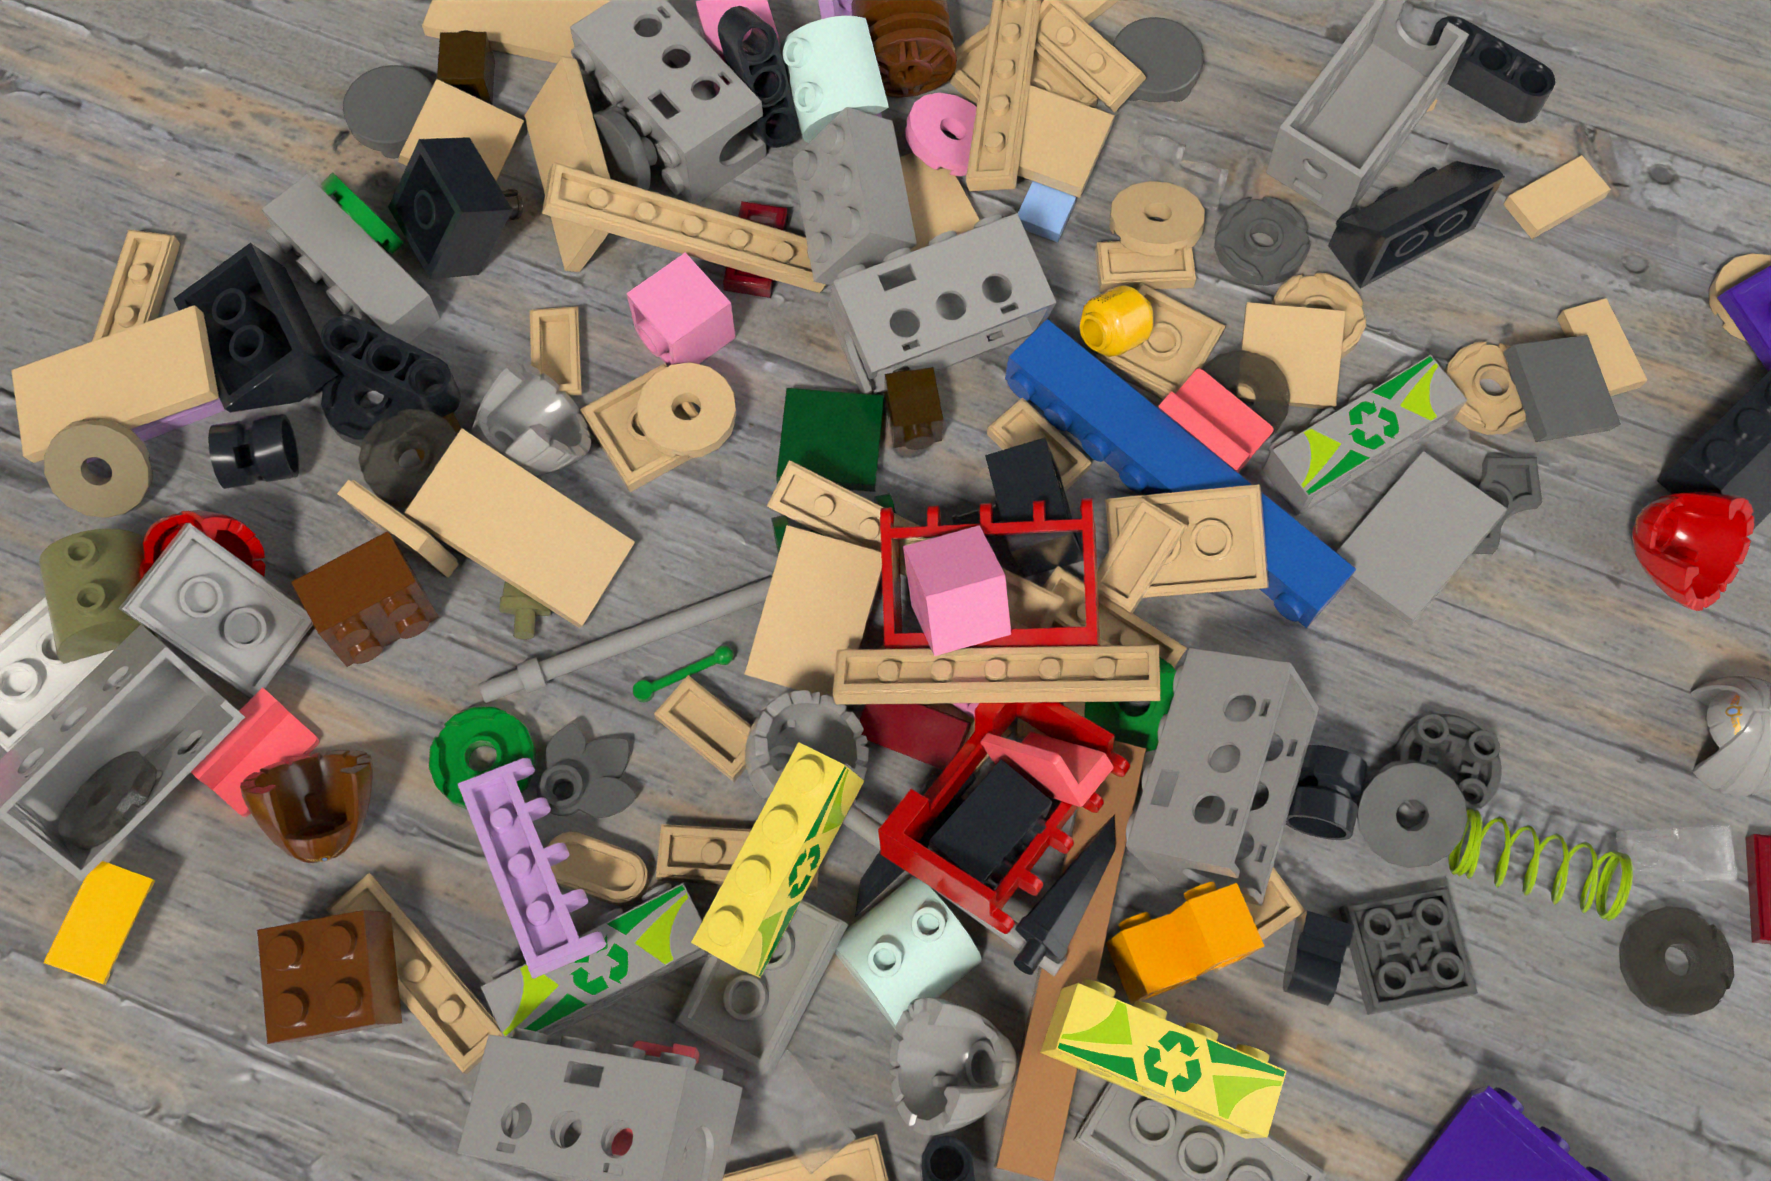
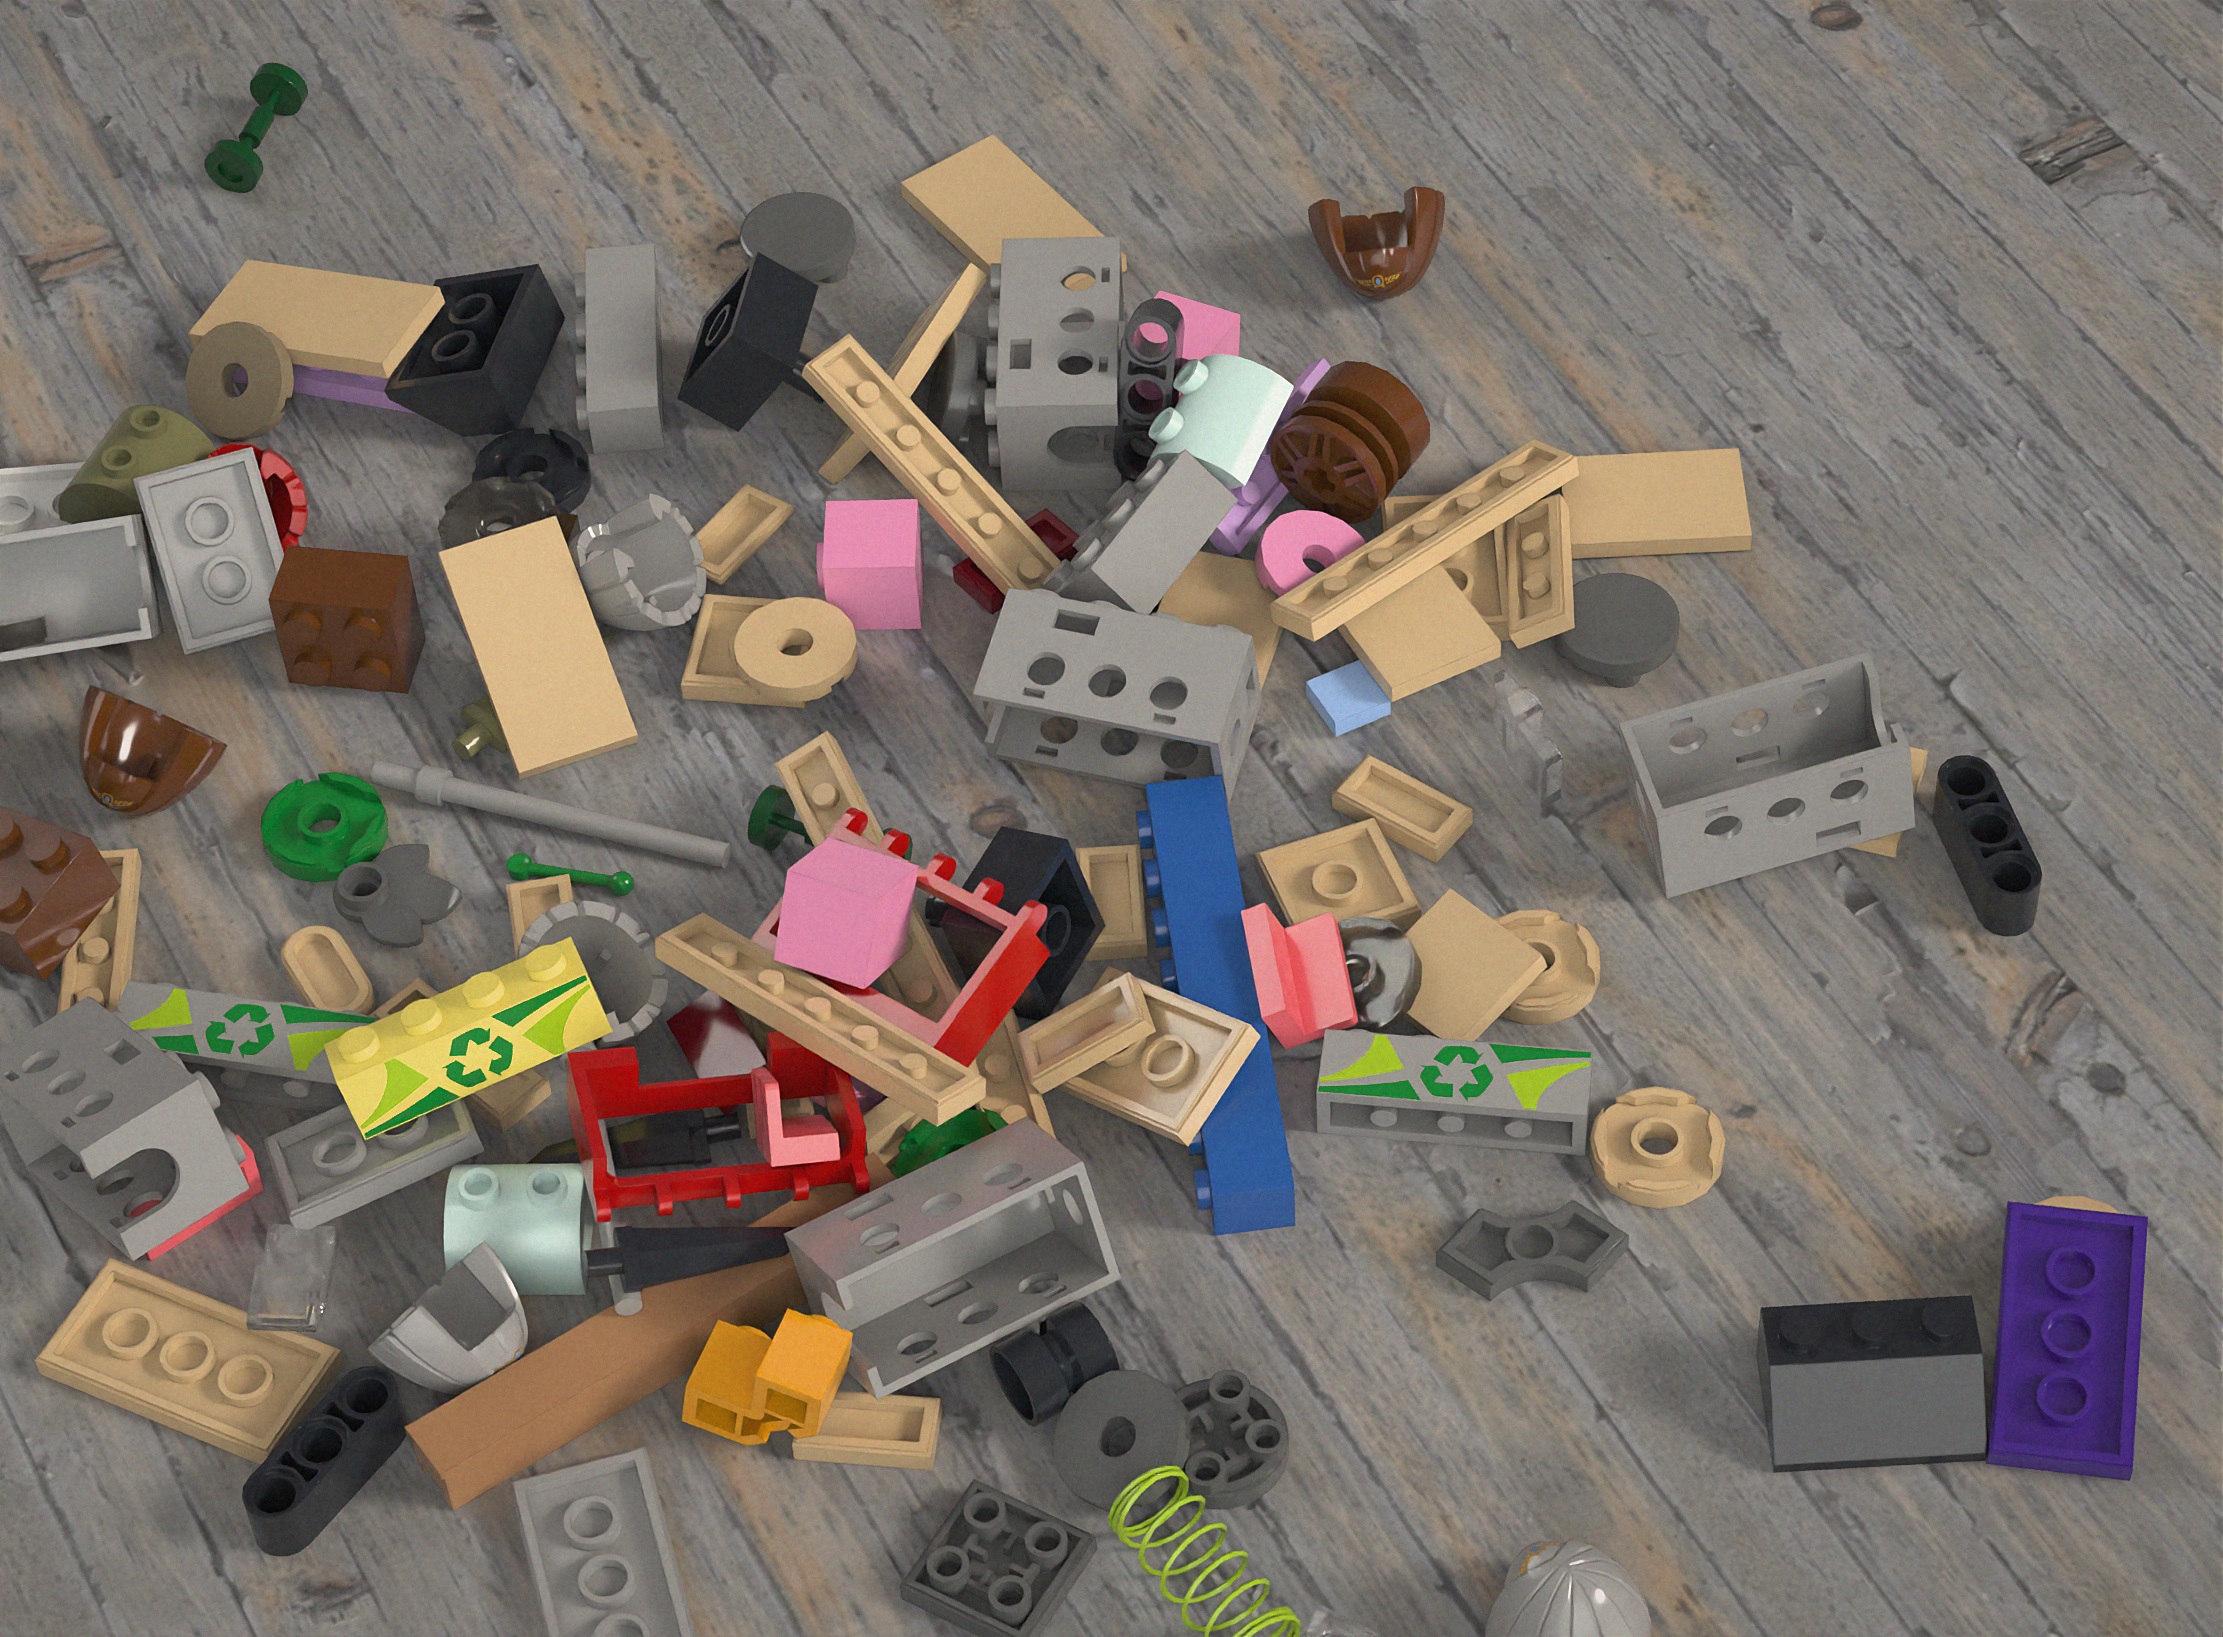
camera: 45 degrees right, 20 degrees down
(138, 282) = (439, 252): tan tile -> none
(260, 739) = (152, 672): coral panel -> none
(271, 447) = (381, 449): black wheel -> none
(362, 214) = (669, 303): green tile -> none
(380, 349) = (564, 446): black beam -> none
(399, 527) = (430, 581): tan tile -> none
(459, 115) = (850, 295): tan tile -> none
(467, 63) = (900, 241): dark brown brick -> none
(524, 869) = (255, 909): lavender hinge -> none
(812, 609) = (728, 874): tan tile -> none
(832, 436) = (918, 765): dark green tile -> none
(913, 408) = (1016, 781): dark brown brick -> none
(993, 826) = (684, 1133): black brick -> none
(1116, 321) = (1292, 821): yellow head -> none
(1164, 200) = (1425, 759): tan tile -> none
(1164, 1060) = (639, 1444): light yellow brick -> none
(1256, 263) = (1562, 889): dark grey tile -> none
(1316, 957) = (895, 1498): black leg -> none
(1413, 220) = (1723, 934): black slope -> none
(1419, 537) = (1407, 1217): light grey tile -> none
(1556, 197) = (1941, 1018): tan tile -> none
(1561, 388) = (1717, 1179): dark grey tile -> none
(1609, 344) = (1826, 1189): tan tile -> none
(1693, 544) = (1694, 1411): red hair -> none

